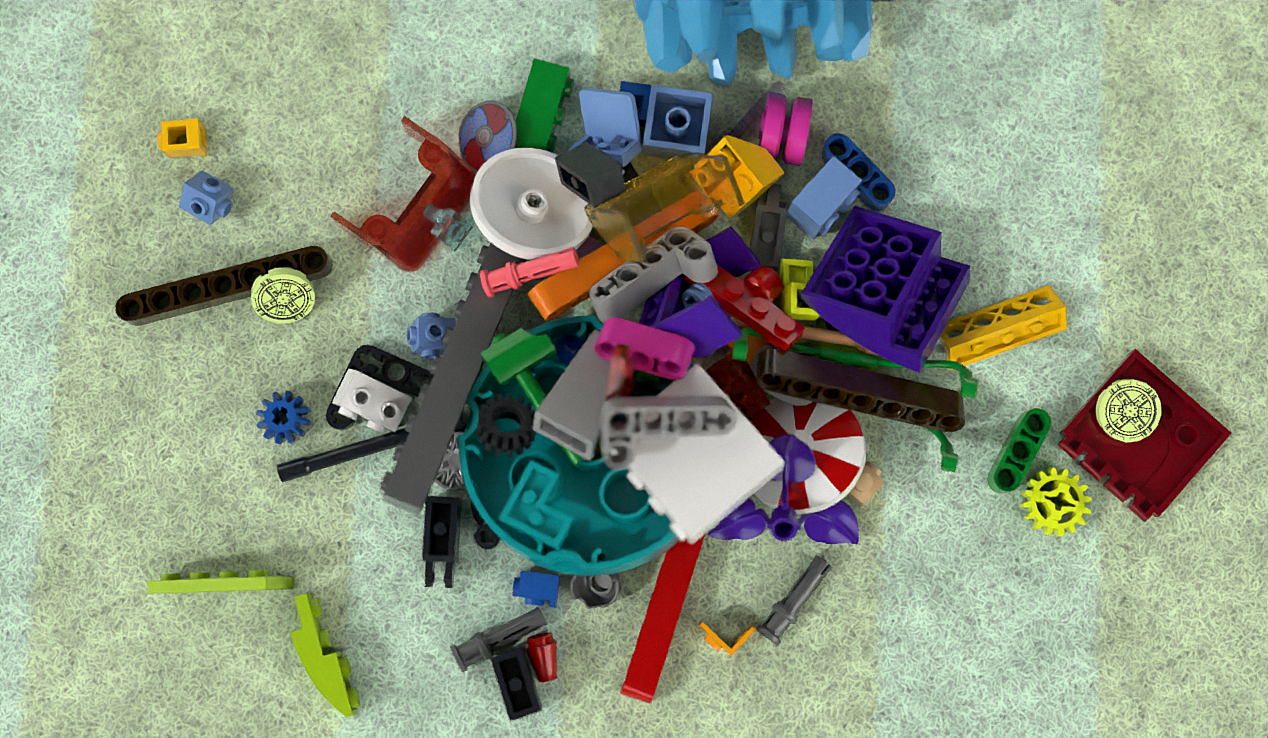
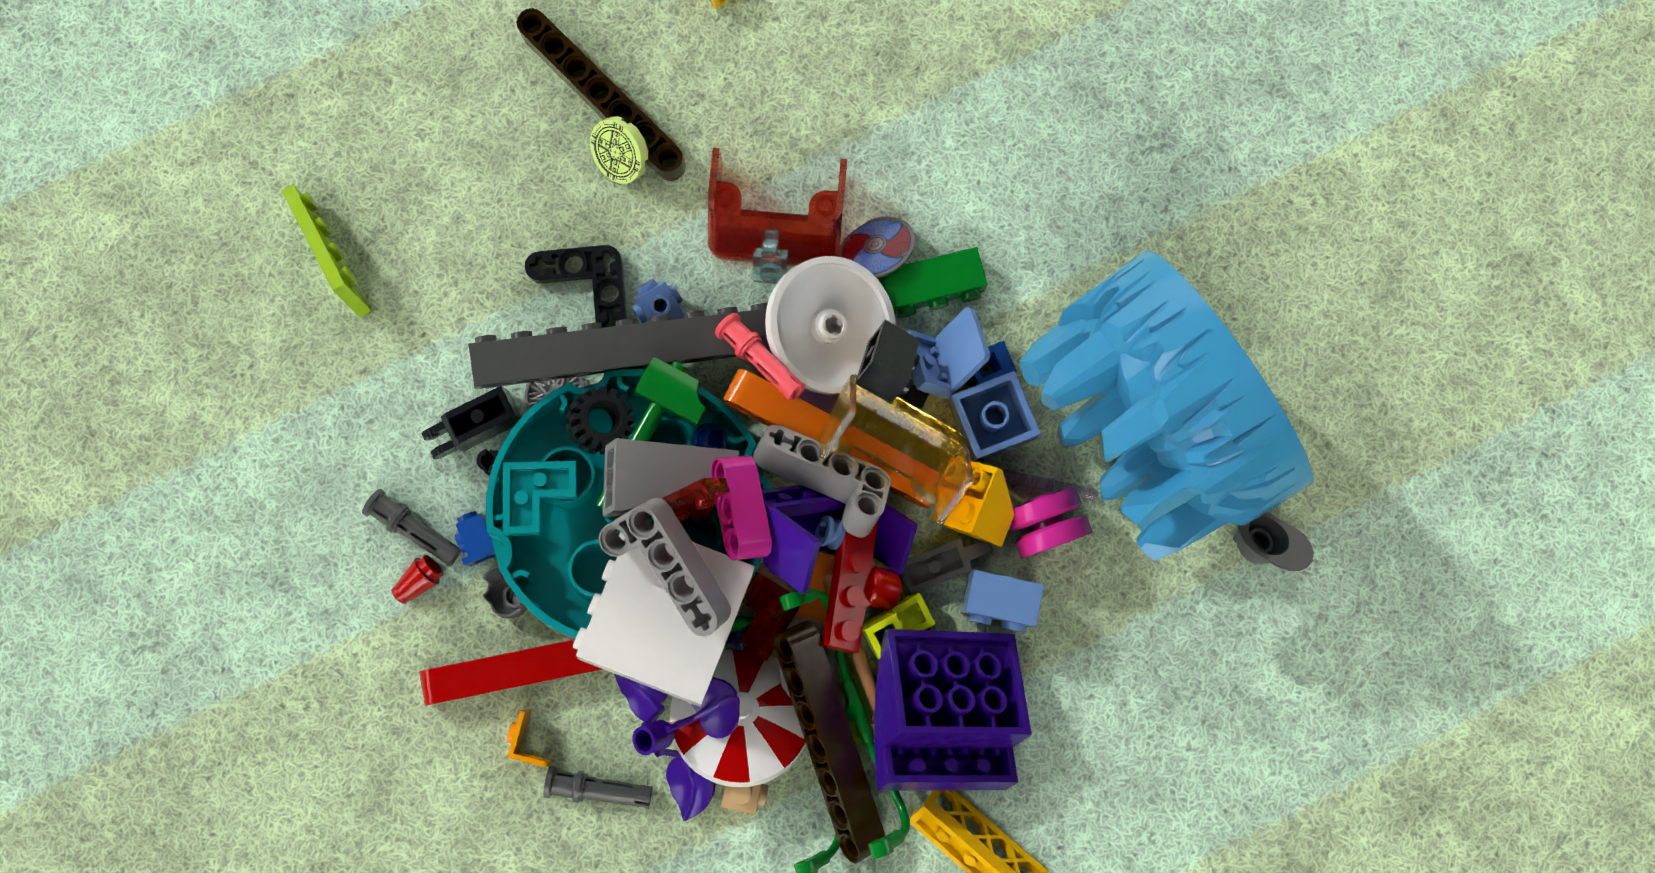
camera: 65 degrees right, 0 degrees up
(206, 197) = (672, 30): medium blue brick -> none
(294, 414) = (515, 225): blue gear -> none
(306, 465) = (477, 262): black piece -> none
(325, 670) = (299, 387): lime slope -> none
(371, 400) = (564, 285): white brick -> none
(516, 683) = (375, 569): black brick -> none
(873, 178) = (1062, 606): blue beam -> none

